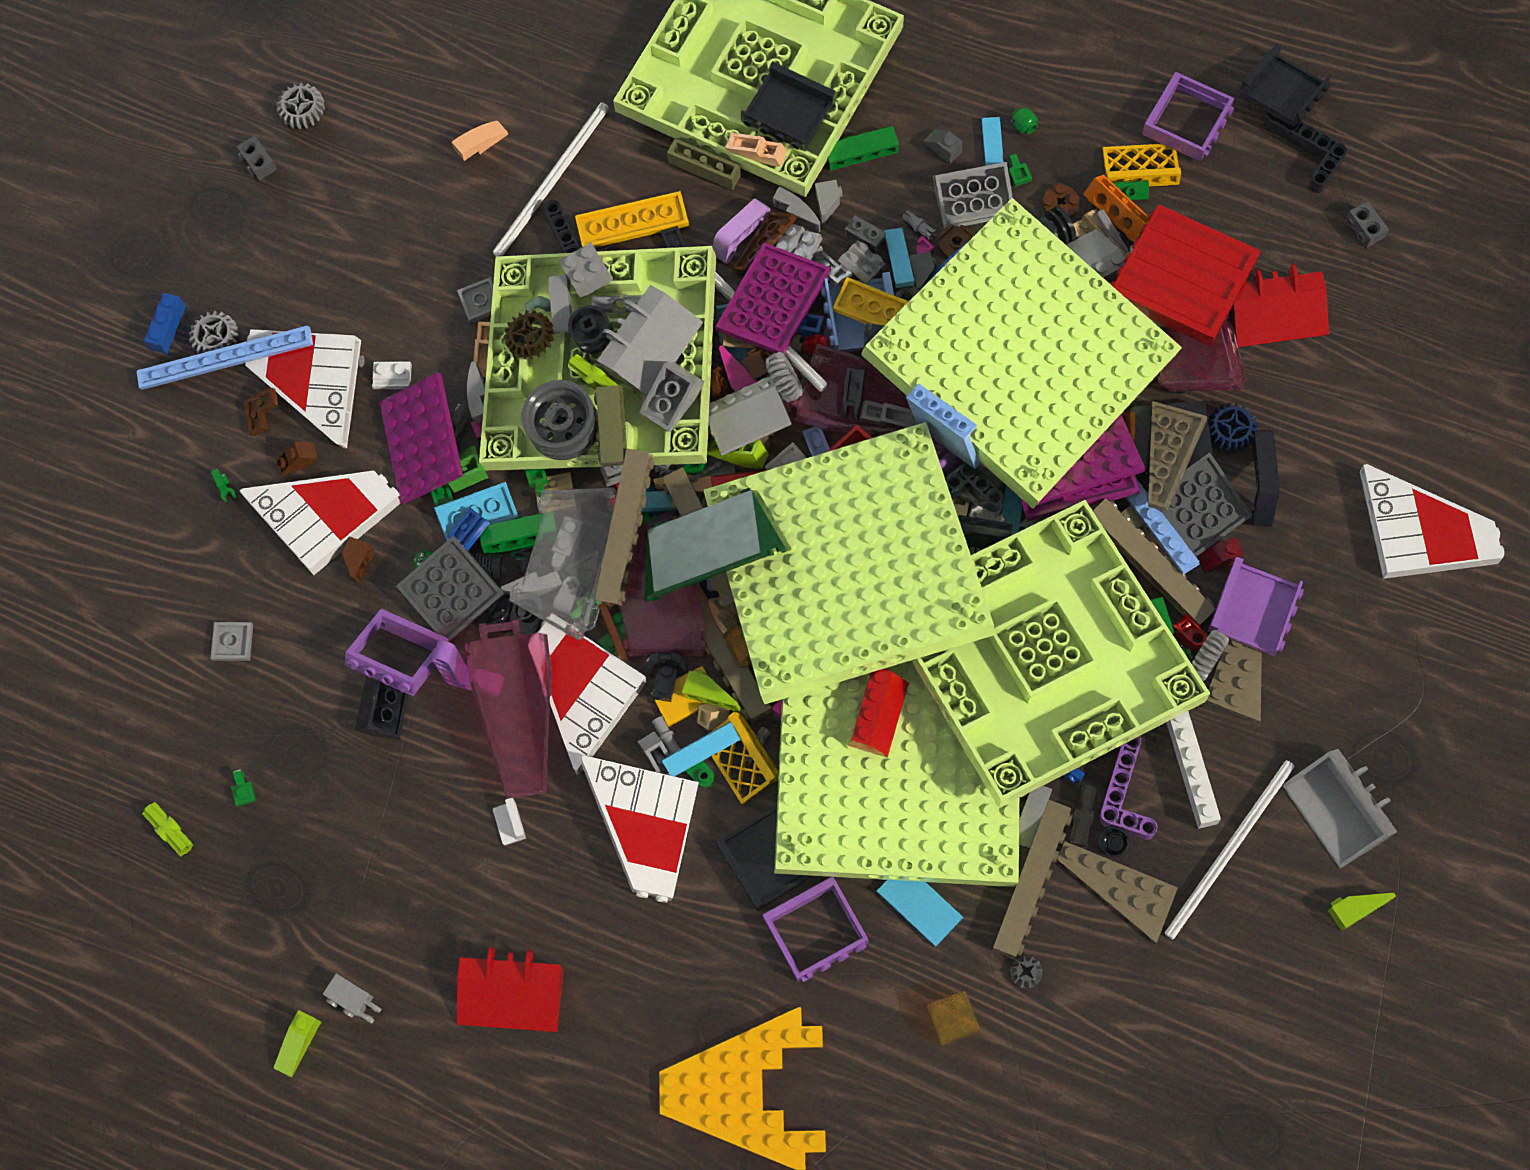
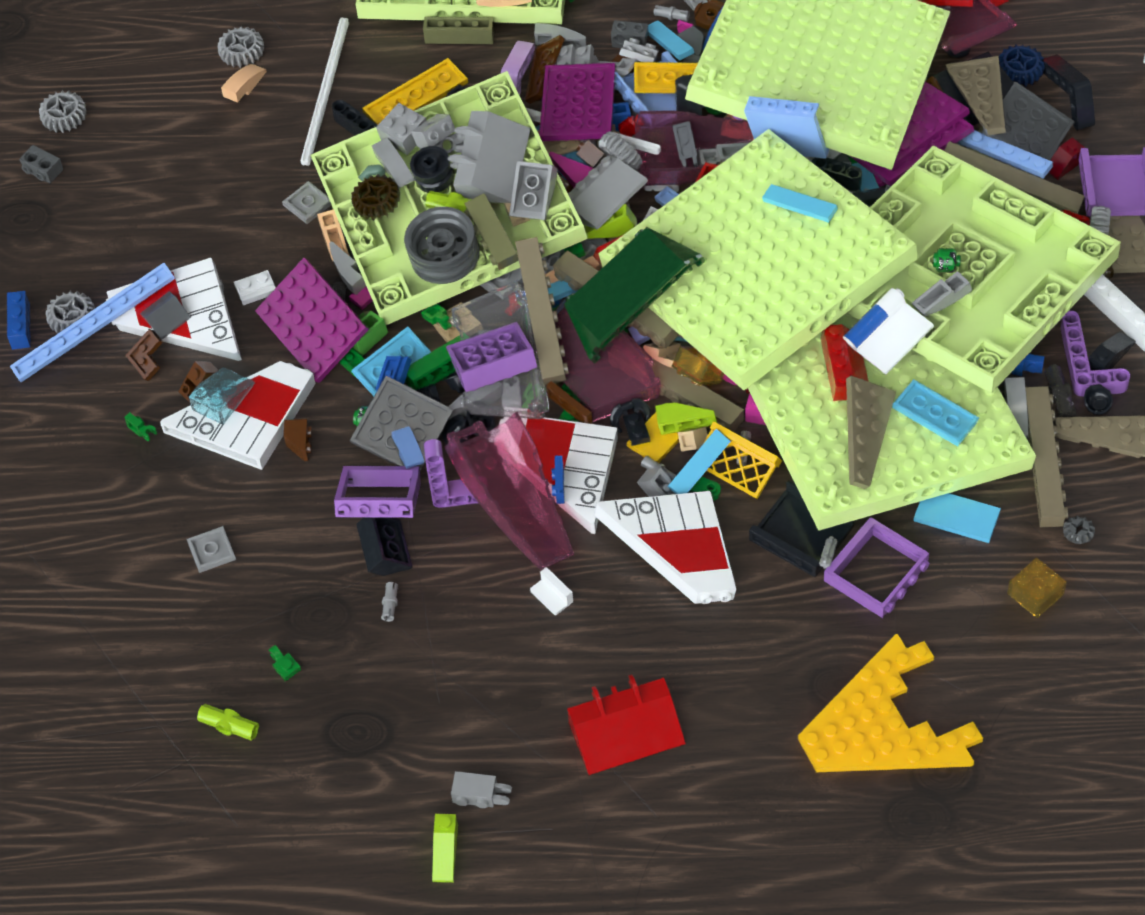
camera: 25 degrees left, 15 degrees down
(289, 378) = (165, 315): none -> dark grey slope
(303, 485) = (220, 395): none -> clear light blue slope
(361, 767) = (389, 601): none -> light grey pin
(443, 616) = (408, 447): none -> medium blue slope
(482, 98) = (240, 46): none -> light grey gear
(557, 556) = (492, 356): none -> medium lavender slope
(562, 713) = (558, 476): none -> blue plate
(609, 287) = (433, 130): none -> light grey brick
(776, 896) = (828, 552): none -> light grey axle
(828, 198) = (580, 19): light grey slope -> none
(866, 785) = (867, 420): none -> dark tan wing
(908, 527) = (800, 203): none -> medium azure tile
(928, 703) = (888, 331): none -> white door
(941, 799) = (935, 412): none -> medium azure tile
(999, 685) = (942, 294): none -> light grey slope
(1023, 647) = (946, 260): none -> green head
(1154, 793) = (1110, 352): none -> black slope

